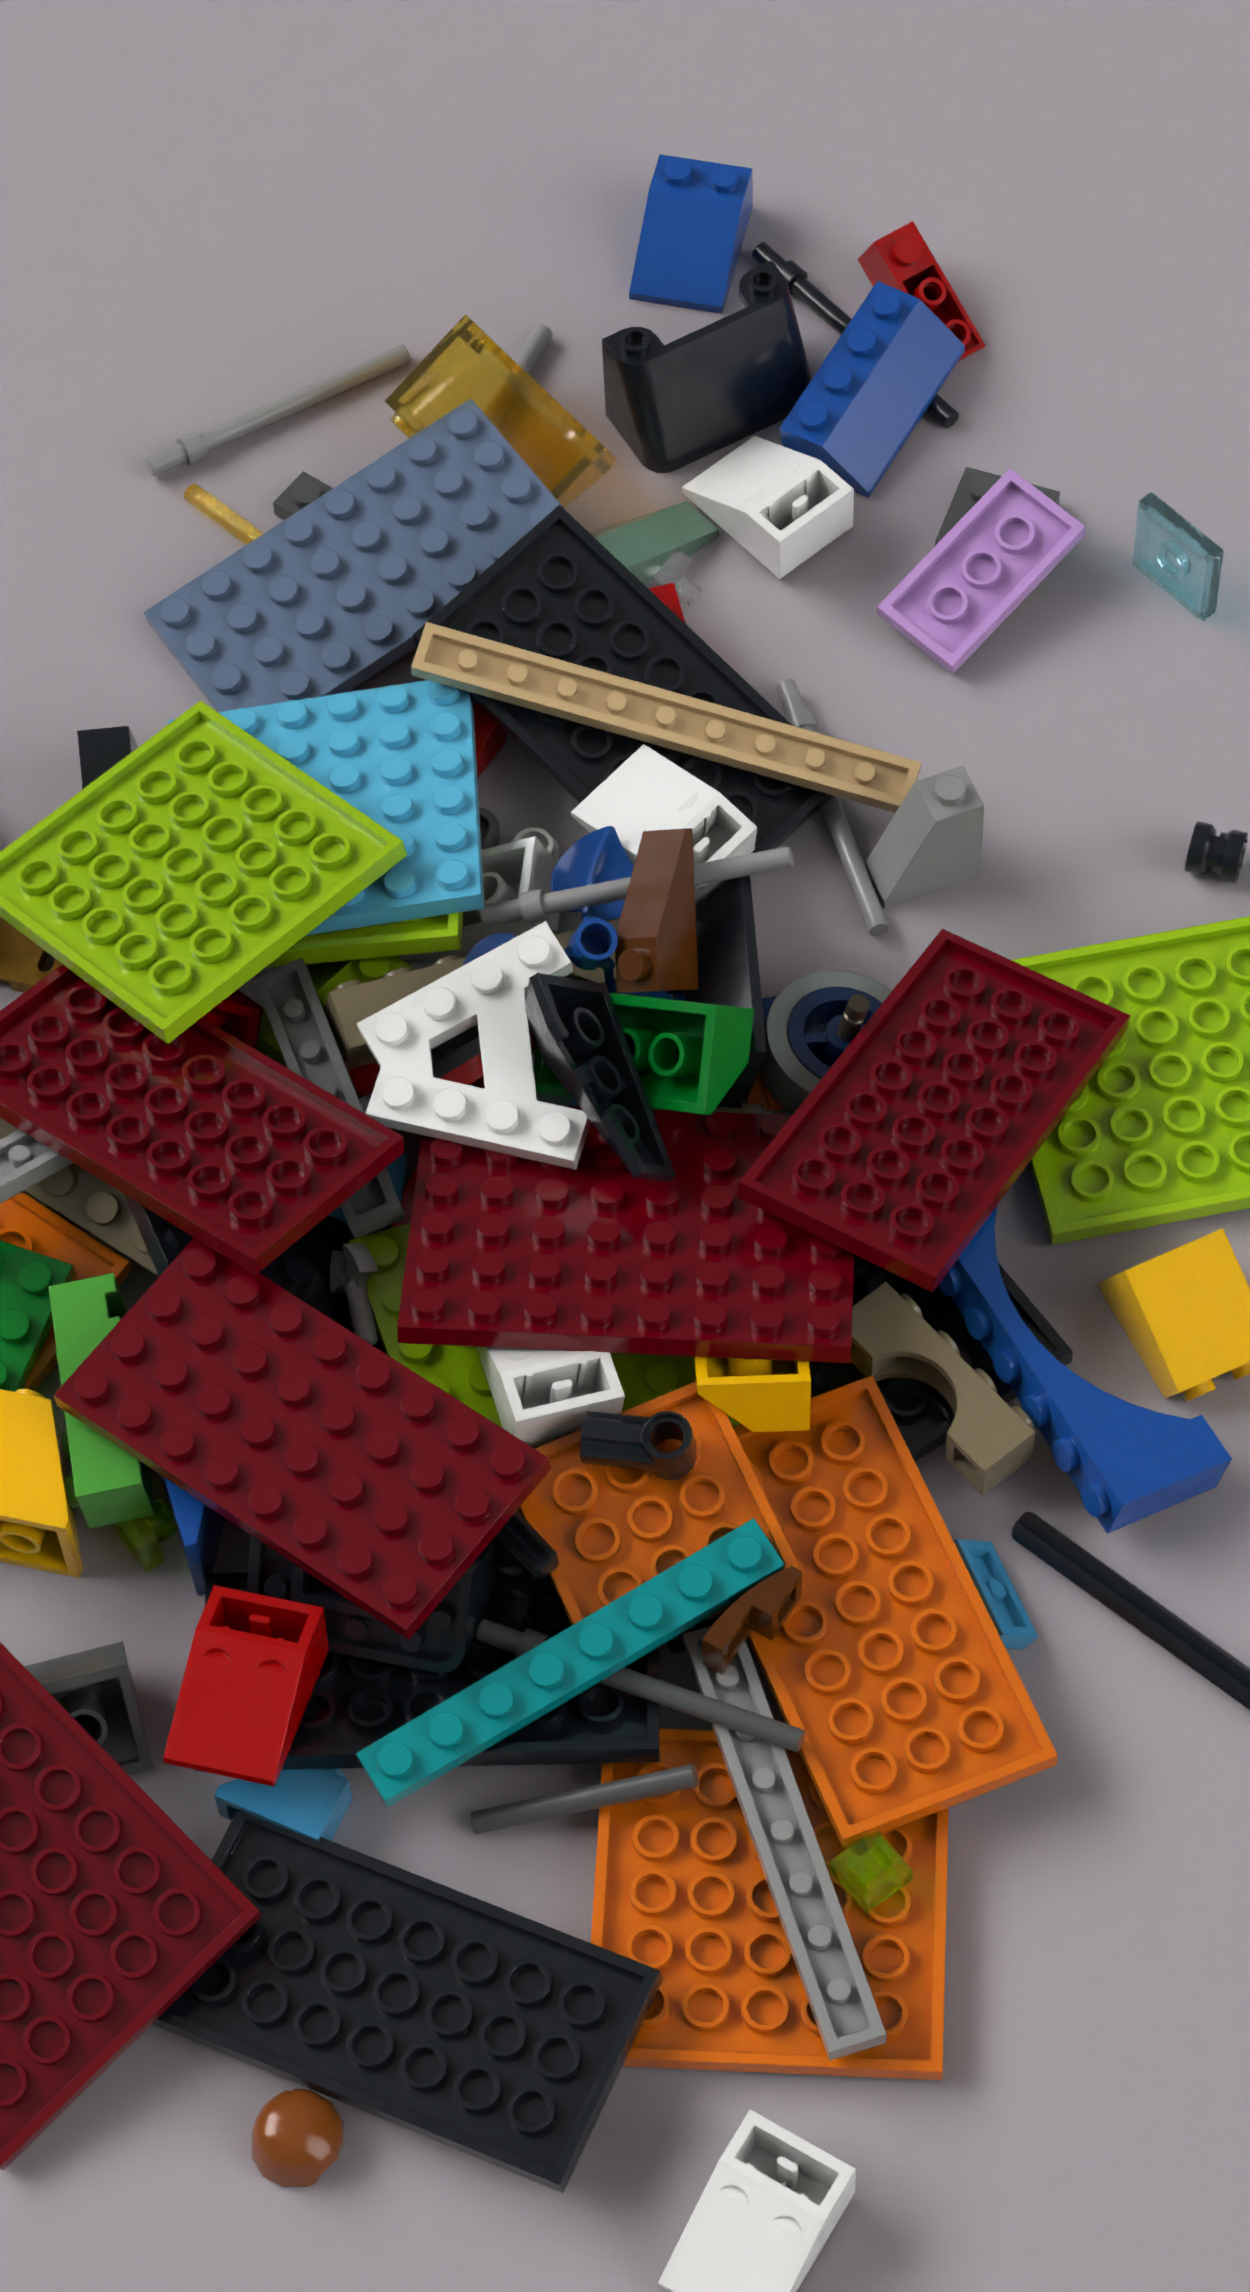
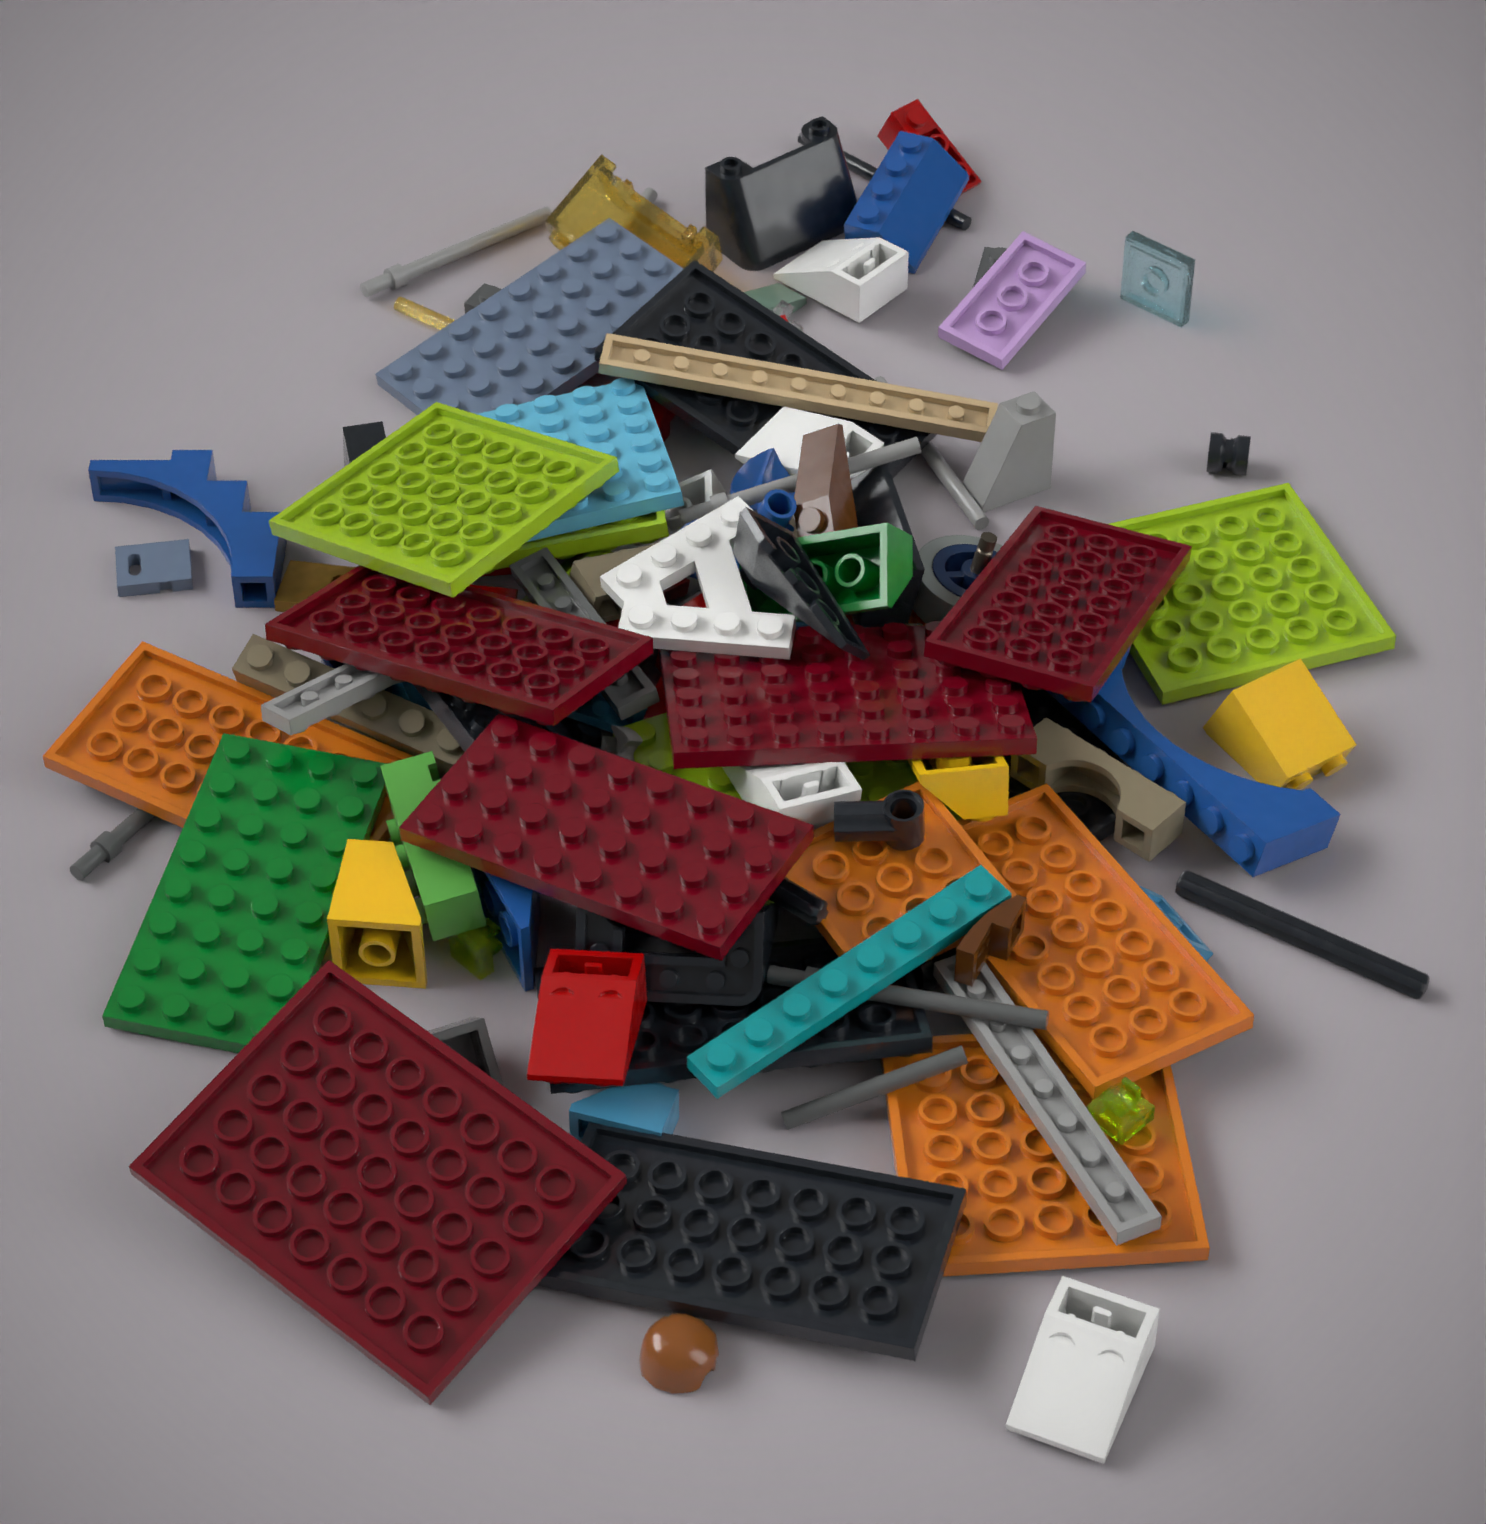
camera: 10 degrees left, 15 degrees down
(692, 233) = (751, 120): blue slope -> none

